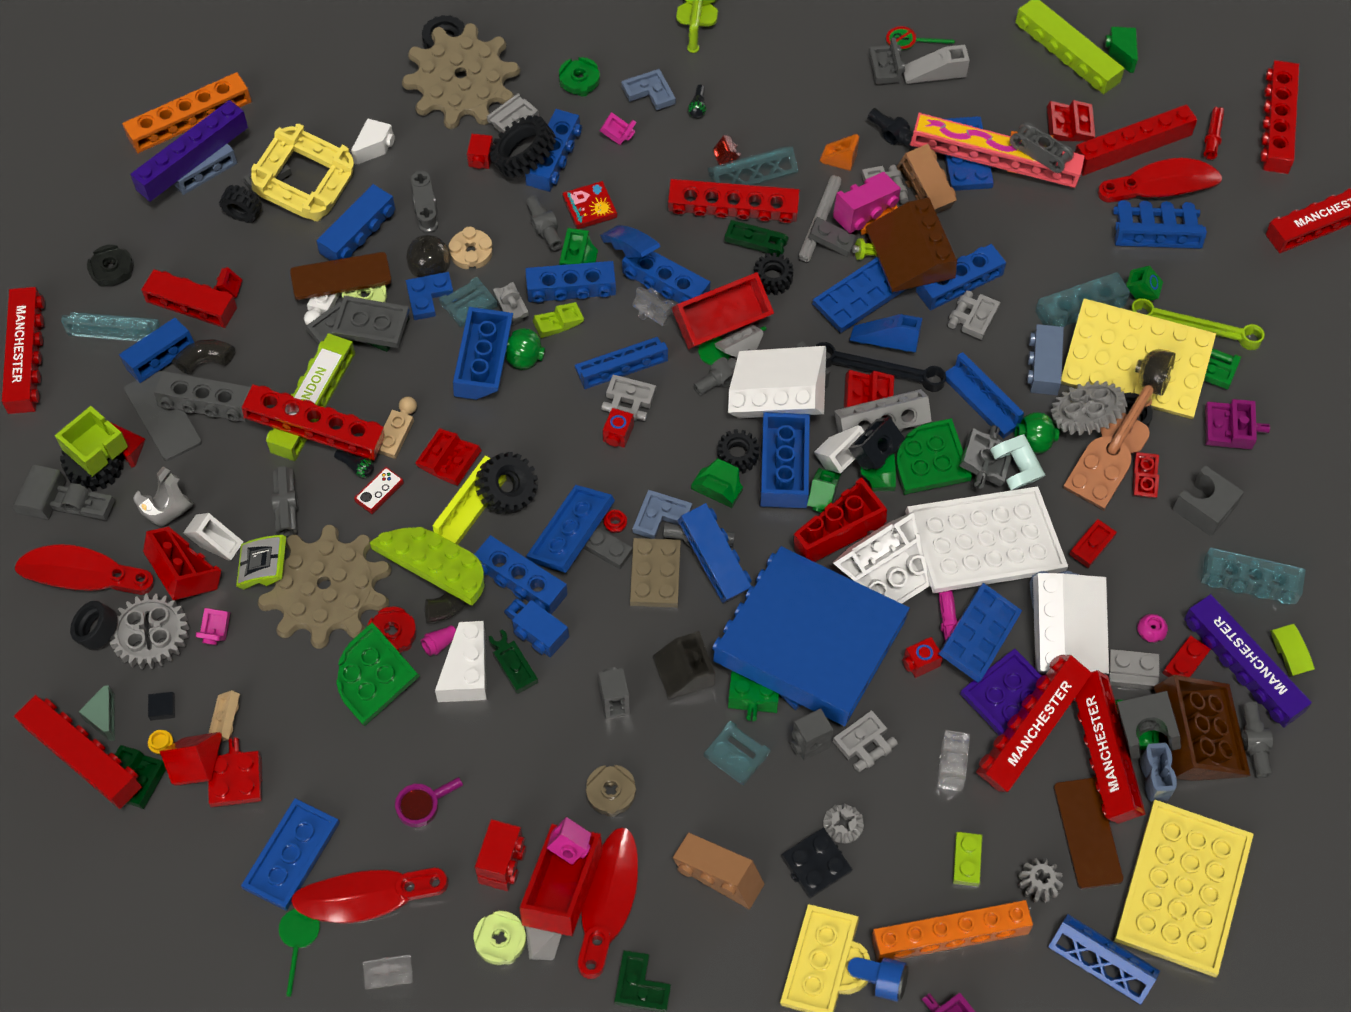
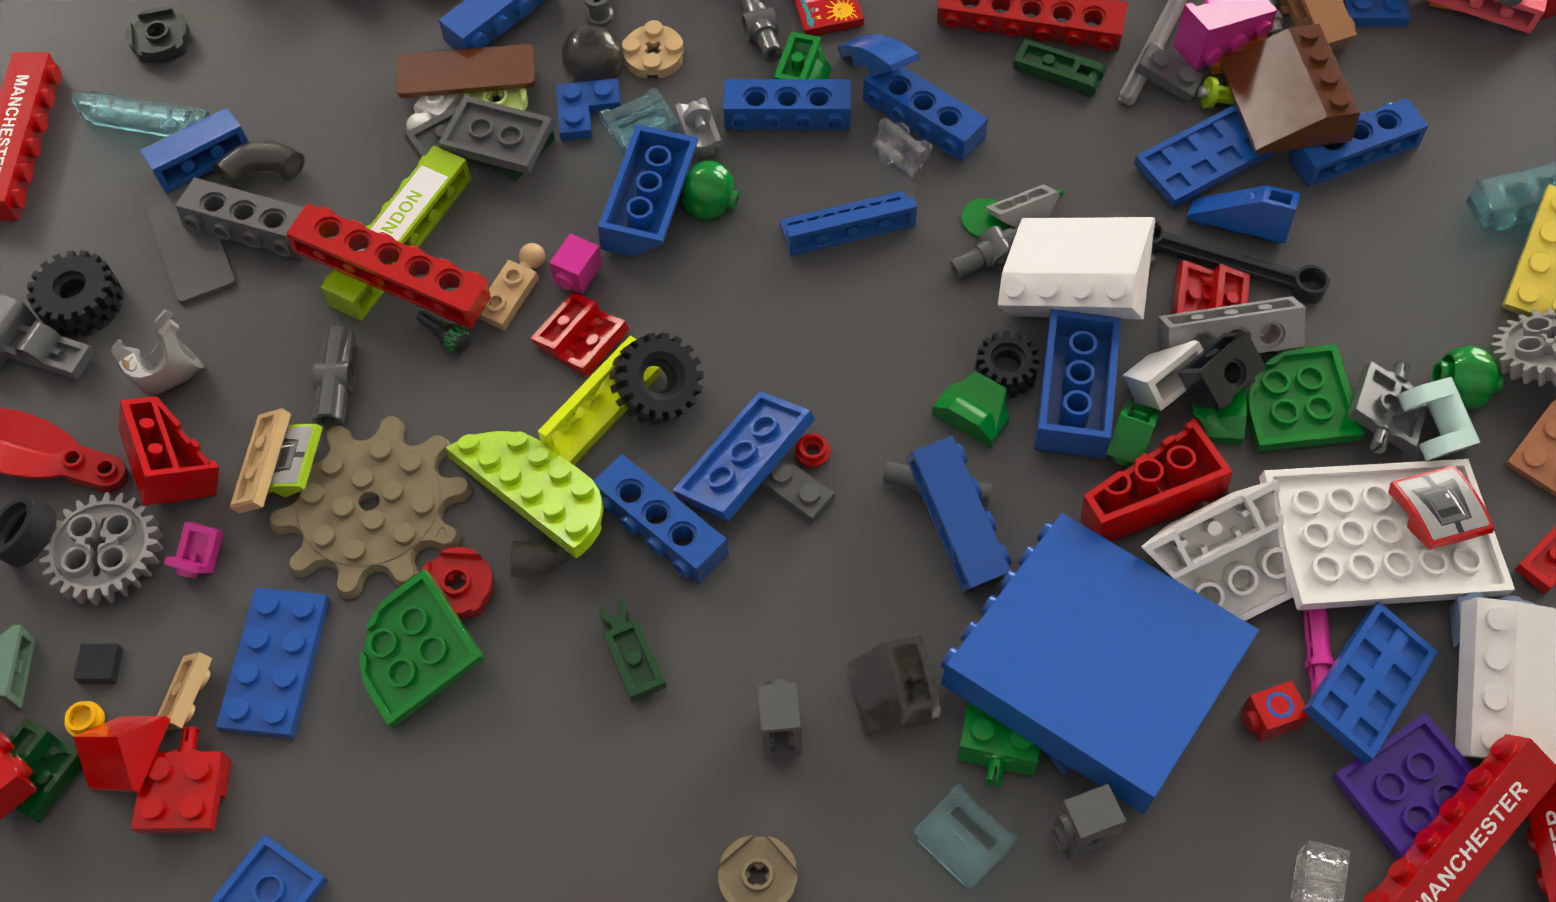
camera: 10 degrees right, 0 degrees up
(91, 440) = (68, 263): lime piece -> none
(135, 445) = (130, 274): red slope -> none
(189, 298) = (255, 85): red brick -> none
(213, 536) = (220, 416): white slope -> none
(228, 281) = (311, 69): red tile -> none
(247, 562) = (260, 461): none -> tan tile
(278, 693) = (273, 663): none -> blue plate
(378, 490) = (472, 373): tile -> none
(419, 804) = (455, 864): piece -> none
(437, 640) = (523, 605): dark pink cone -> none
(439, 408) = (575, 264): none -> dark pink brick
(465, 666) = (557, 650): white wedge -> none
(537, 627) = (675, 600): blue brick -> none
(560, 320) = (759, 159): lime slope -> none
(618, 428) = (832, 314): red brick -> none
(631, 392) = (855, 264): light grey plate -> none
(655, 572) = (864, 535): dark tan plate -> none
(658, 508) = (876, 438): sand blue plate -> none
(722, 310) = (1002, 159): red piece -> none
(774, 263) = (1082, 103): black tyre -> none
(859, 736) = (1165, 830): light grey plate -> none
(980, 317) = (1384, 201): light grey plate -> none
(982, 396) = (1385, 319): blue fence -> none
(1020, 519) = (1441, 507): none -> slope
(1045, 359) = (1484, 271): sand blue brick -> none

